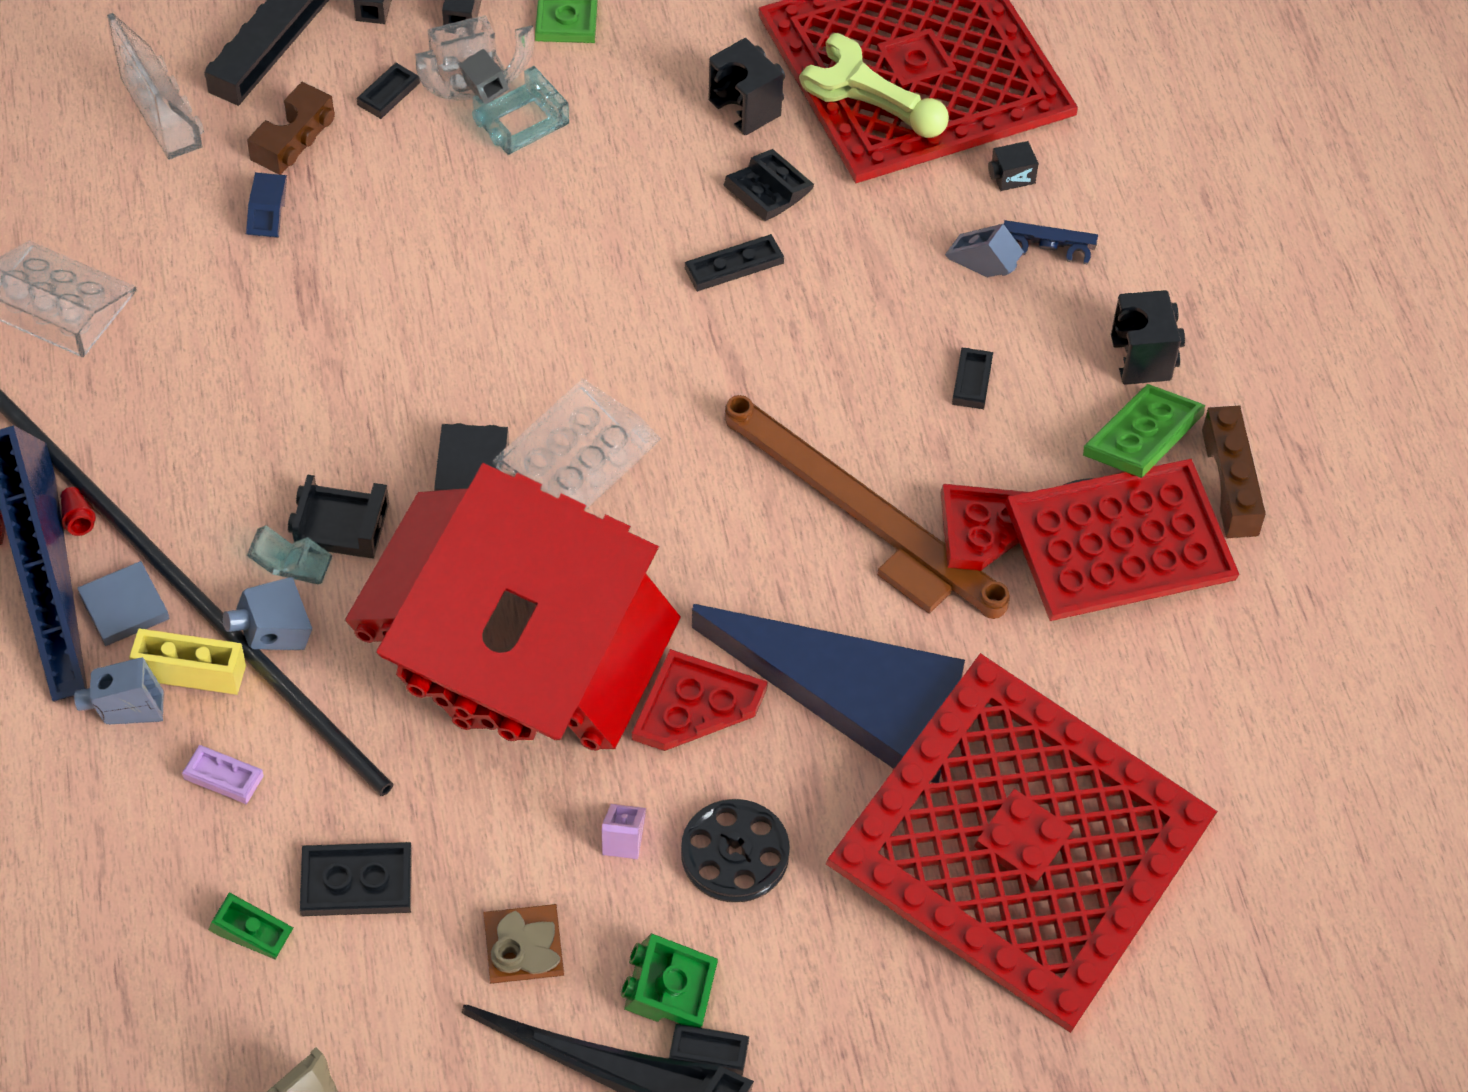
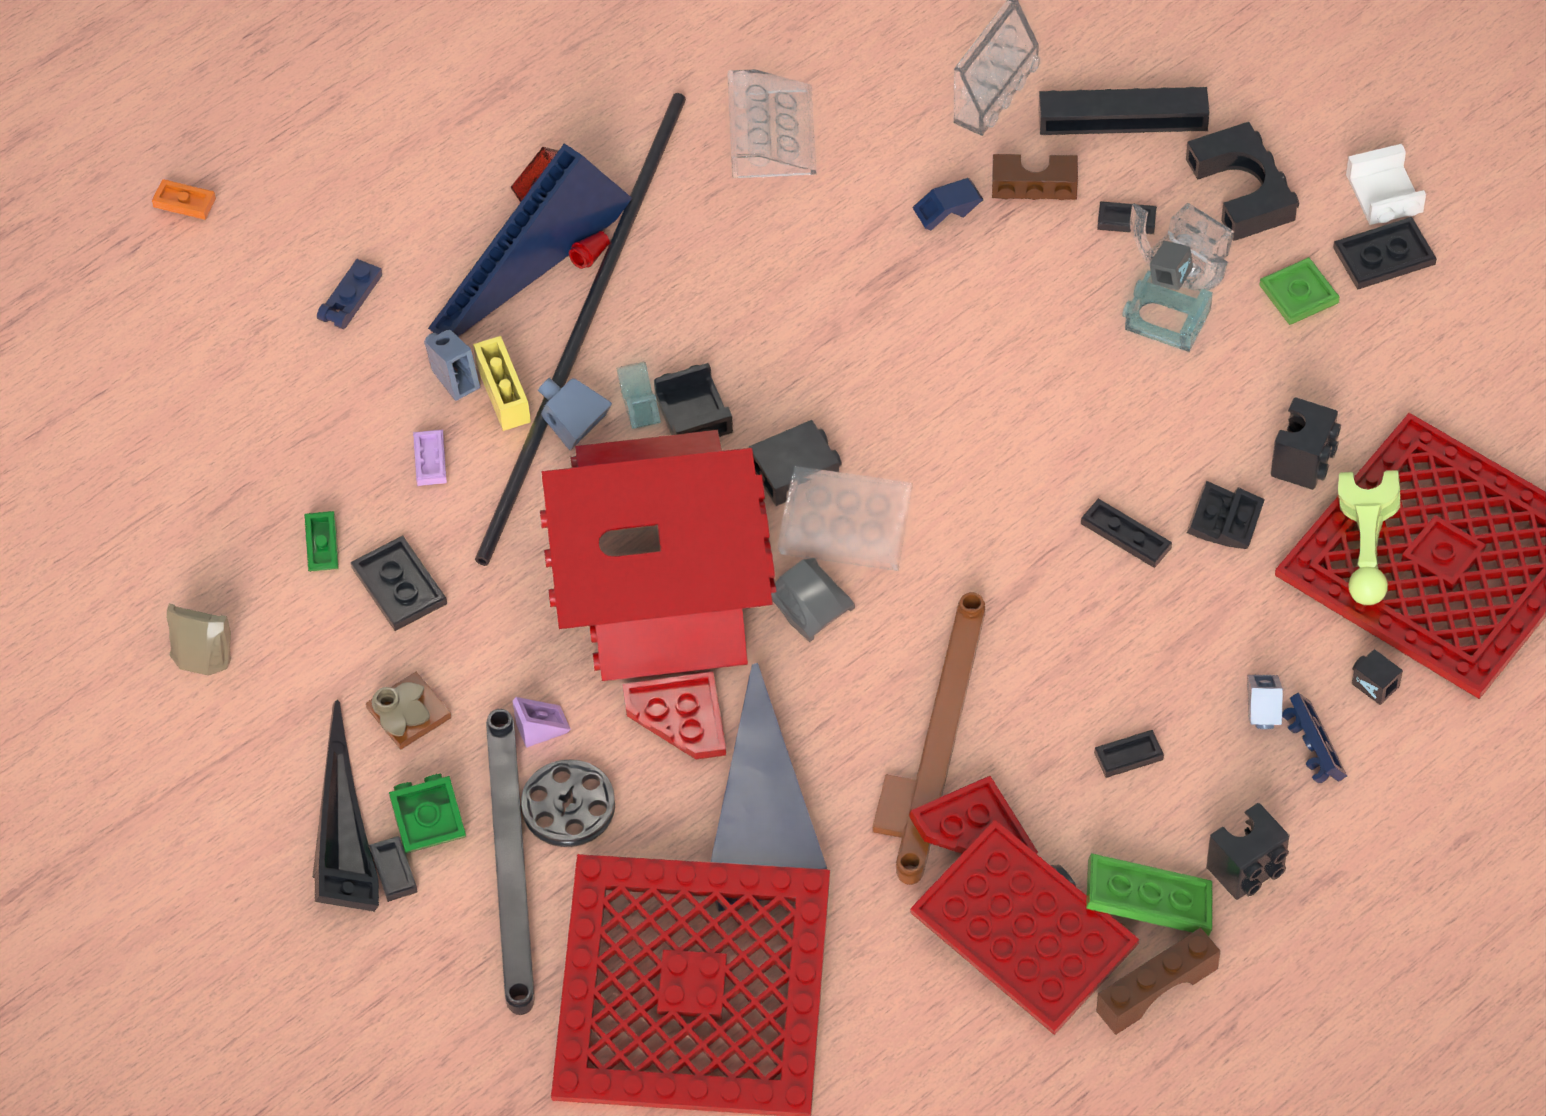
camera: 65 degrees right, 0 degrees up
(123, 603) = (534, 322): sand blue tile -> none
(649, 521) = (810, 598): none -> dark grey slope
(773, 934) = (510, 862): none -> piece

